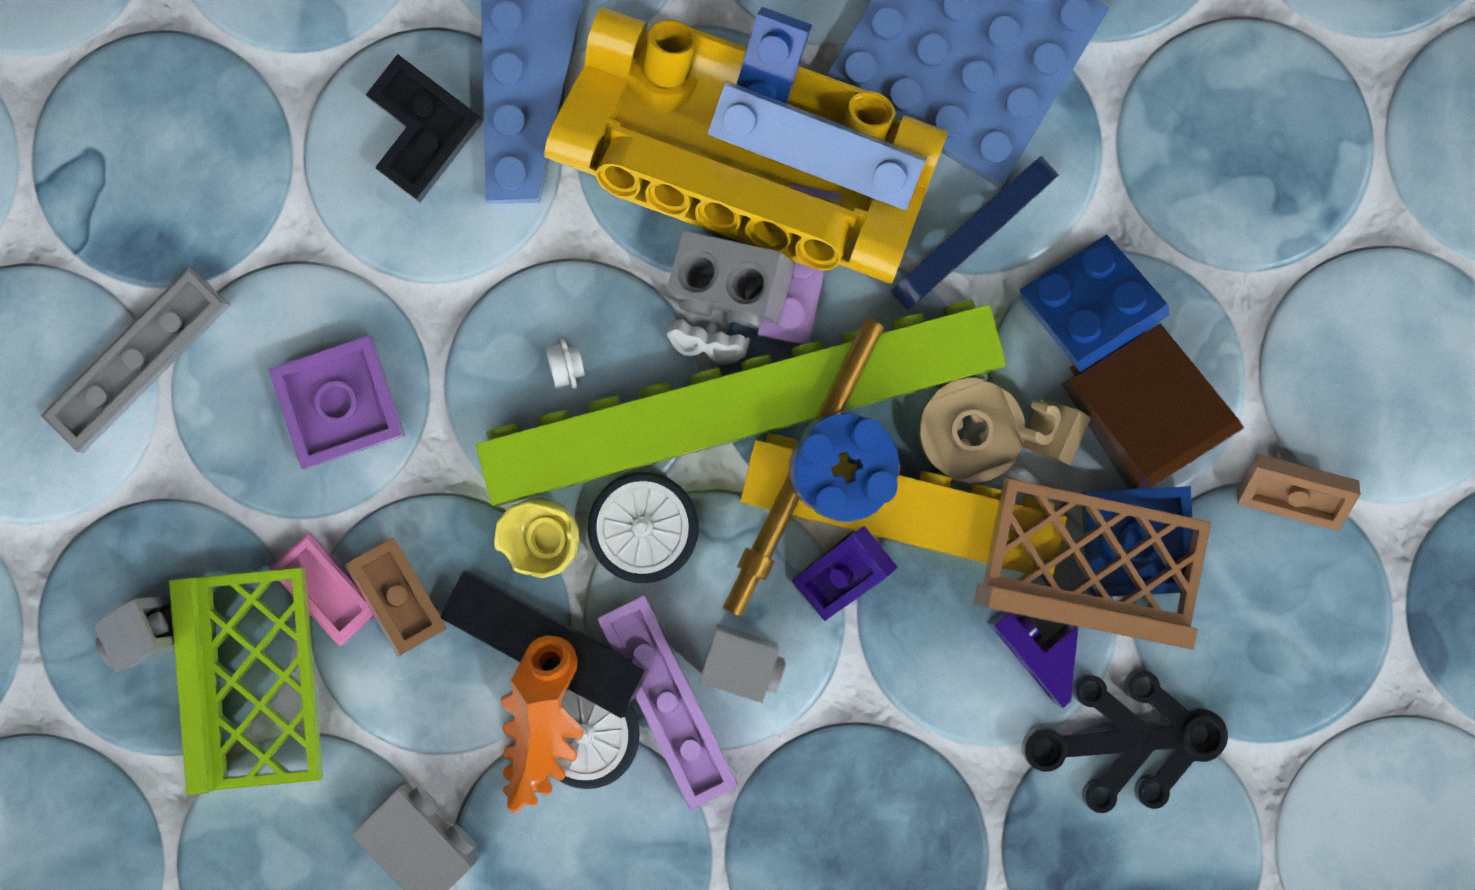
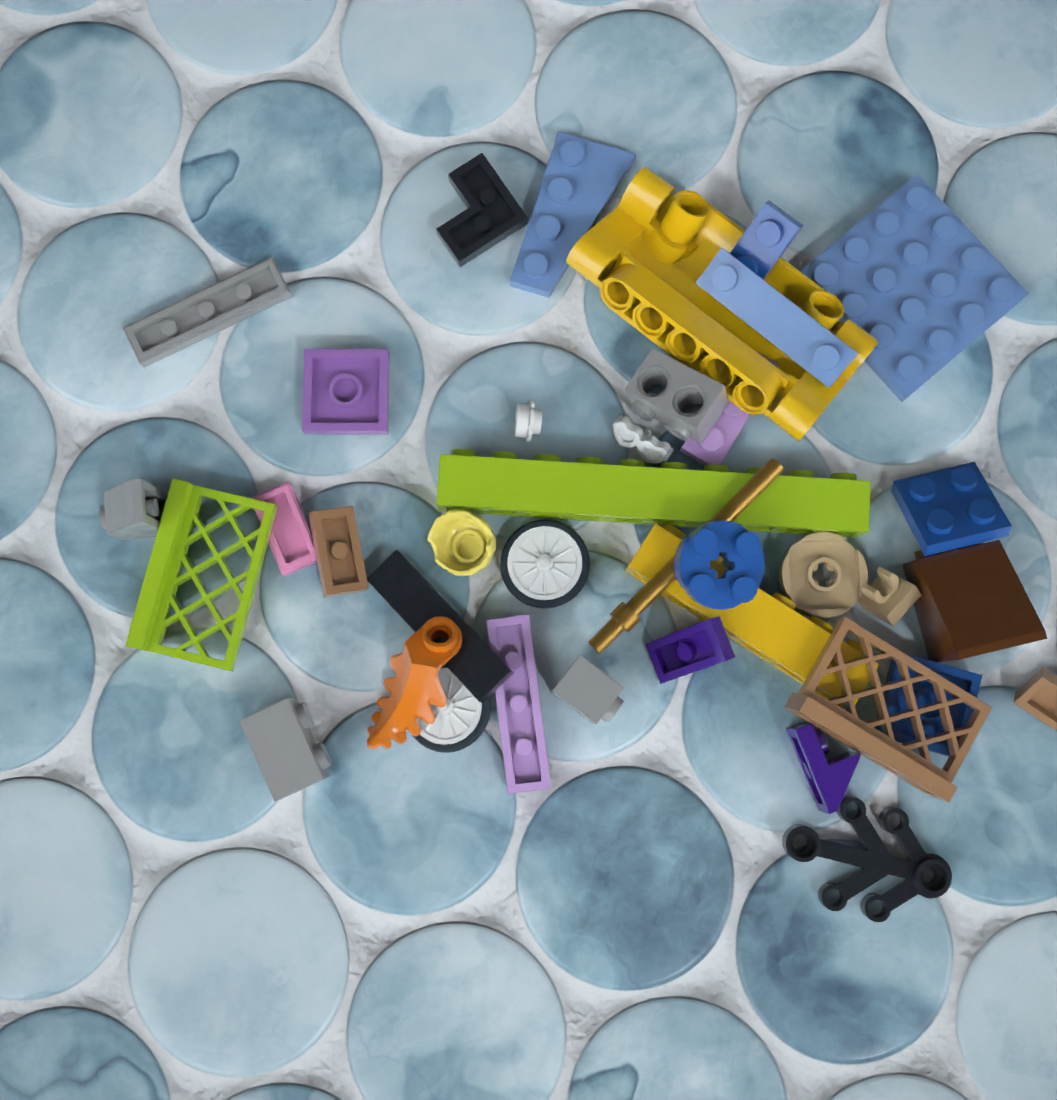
camera: 20 degrees right, 5 degrees down
(974, 233) = (873, 426): dark blue beam -> none

